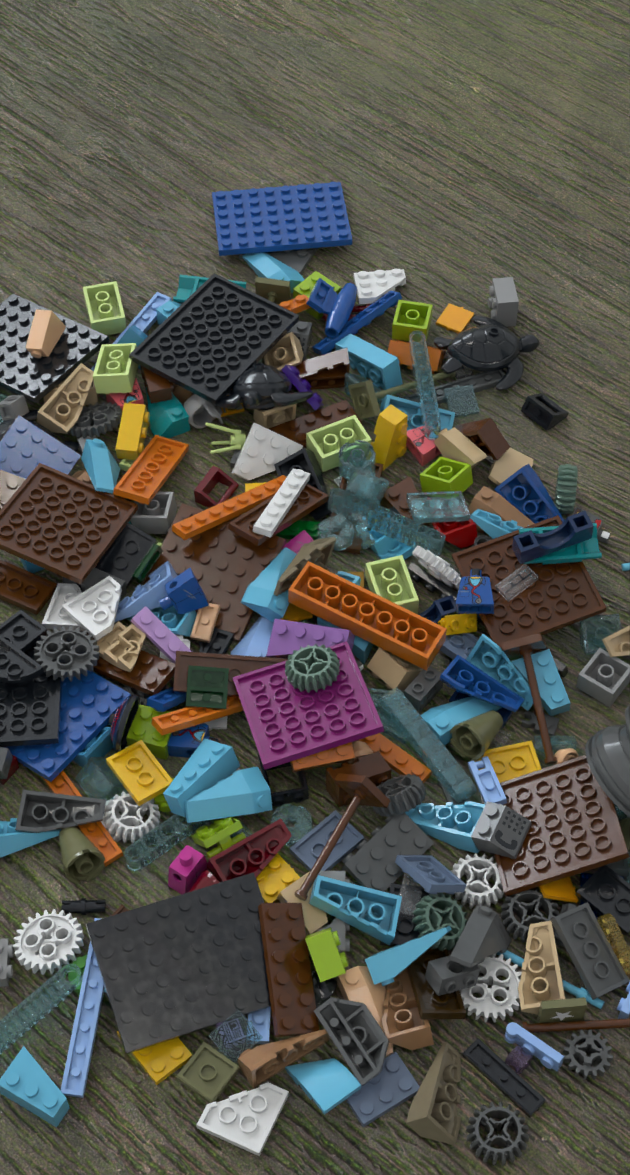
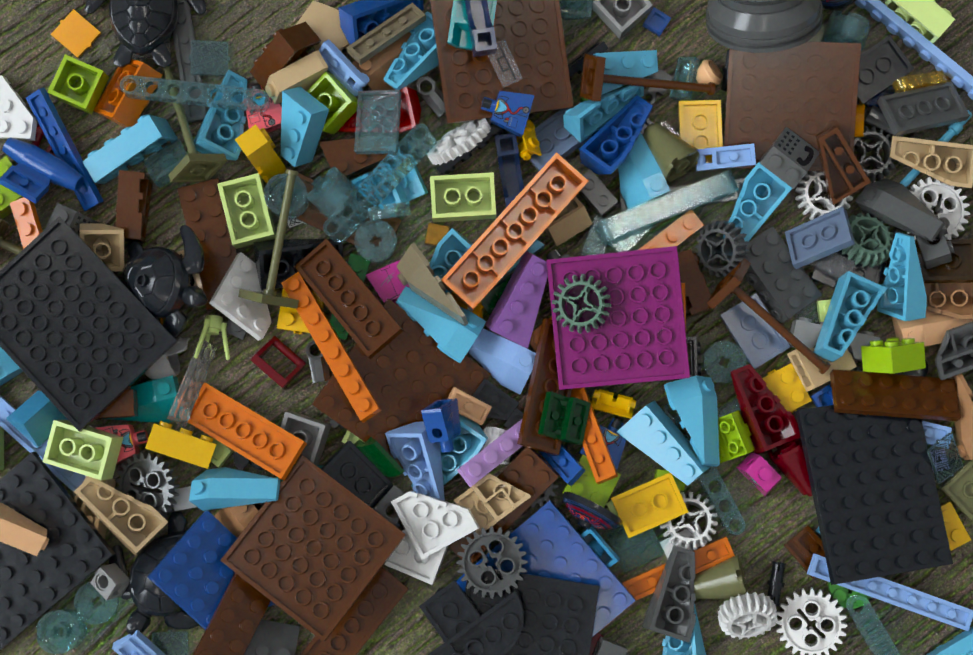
camera: 80 degrees left, 30 degrees up
(47, 875) = (747, 615): none -> white gear
(185, 433) = (191, 385): none -> clear plate
(230, 733) = (604, 401): none -> yellow hinge
(268, 461) = (268, 295): none -> olive tile
(281, 503) = (340, 292): white plate -> none
(302, 385) = (155, 235): dark purple plate -> none
(419, 458) = (301, 125): none -> medium azure wedge
(478, 479) = (343, 68): none -> light blue plate
(505, 869) = (840, 166): none -> reddish brown wedge
(515, 500) = (386, 33): none -> dark tan plate
(602, 714) = (656, 22): none -> blue tile

